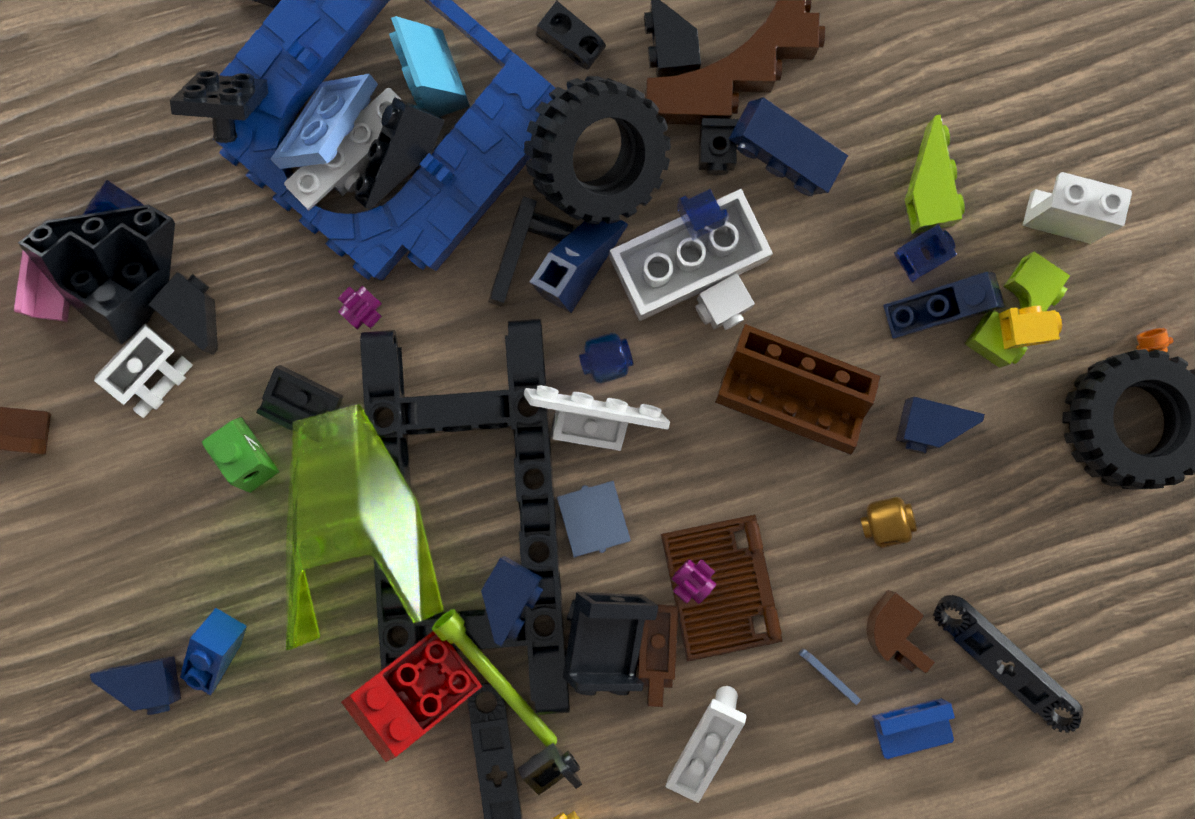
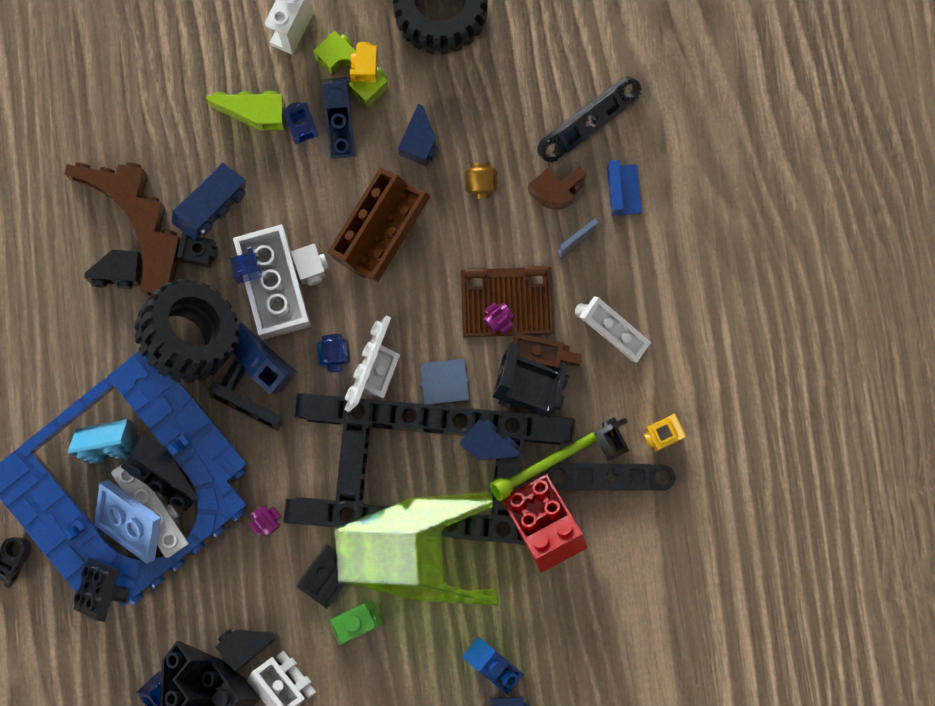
camera: 80 degrees left, 5 degrees down
(570, 36) = (97, 339): black leg -> none

